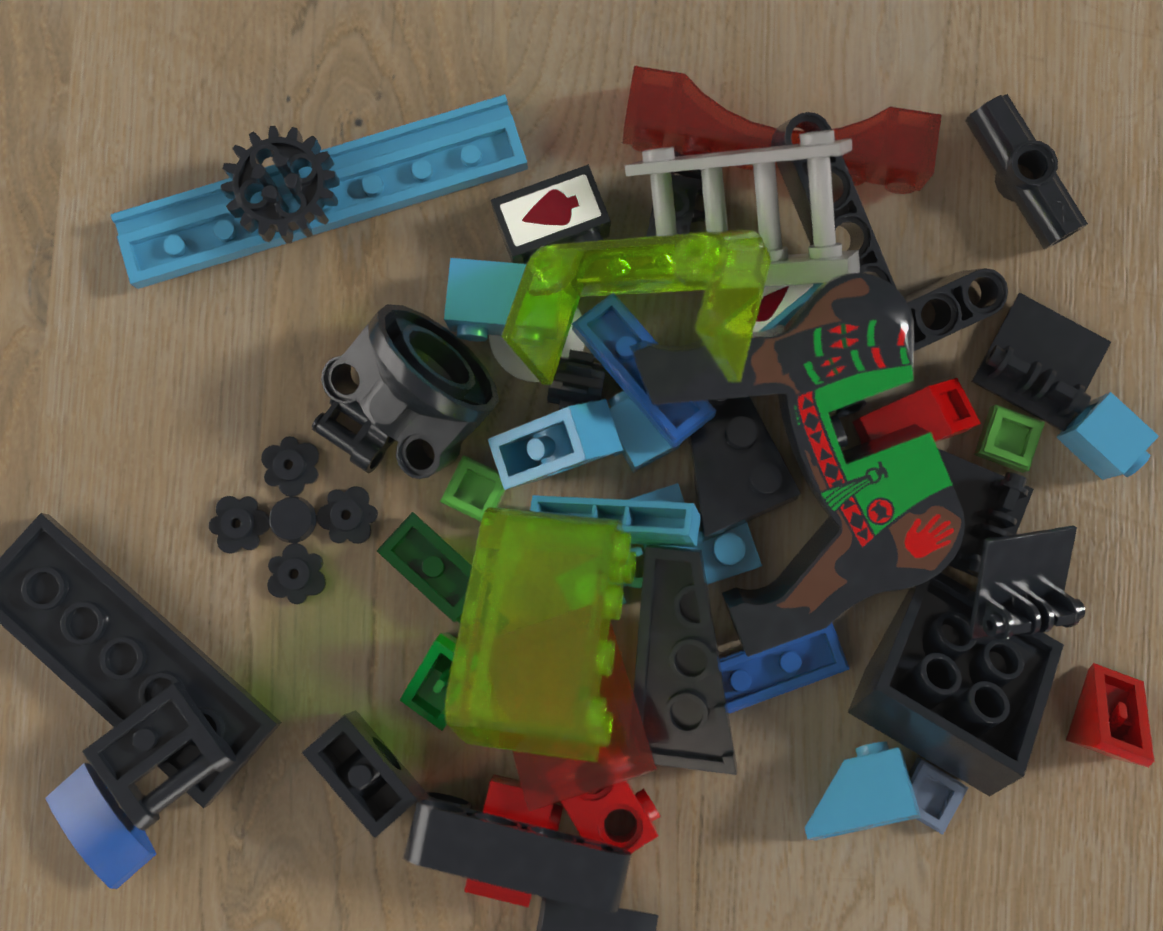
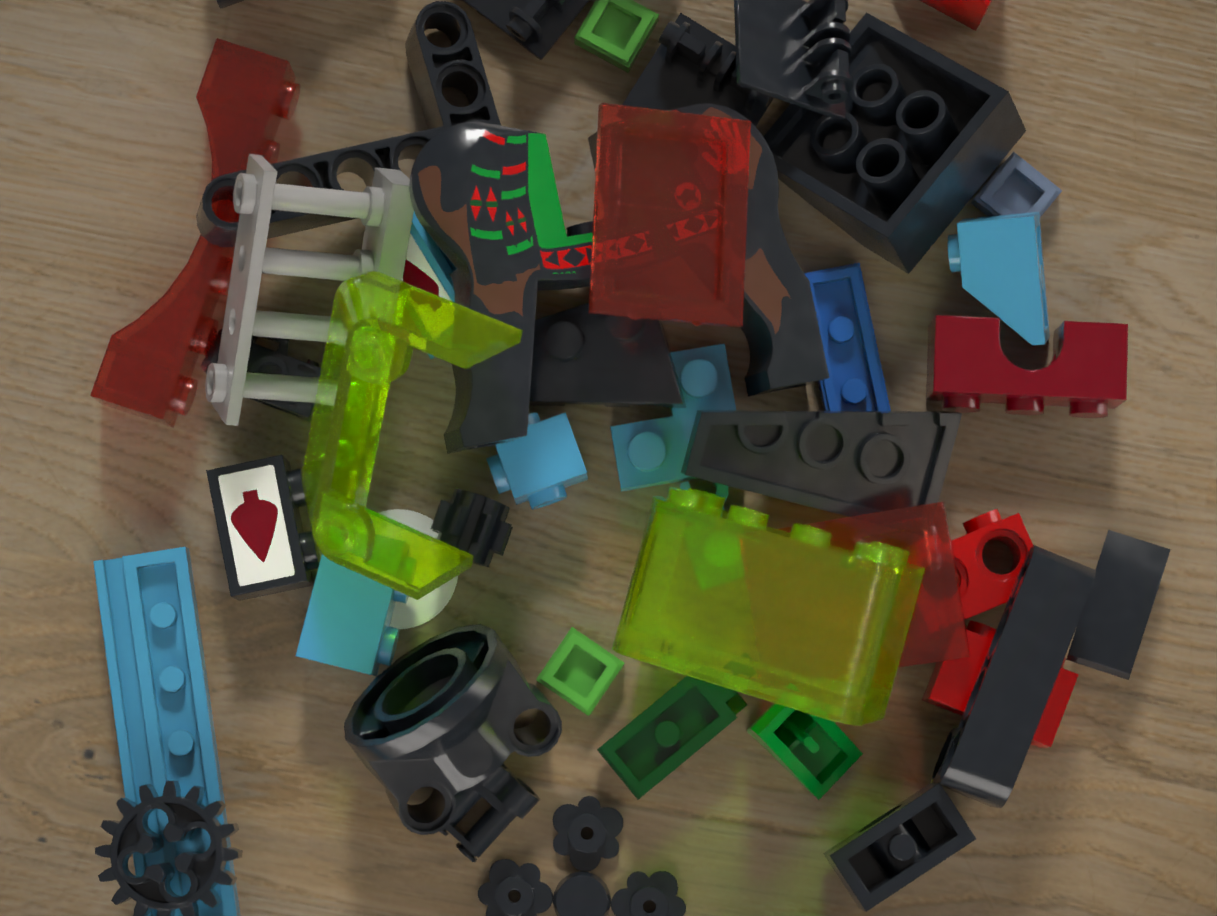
camera: 80 degrees left, 0 degrees up
(555, 443) = (546, 562): dark azure brick -> none
(608, 334) = (425, 475): blue tile -> none
(646, 520) = (653, 470): dark azure piece -> none
(789, 875) = (971, 368): none -> dark red arch
(861, 497) = (670, 216): none -> clear red piece
(936, 408) = (571, 112): red slope -> none

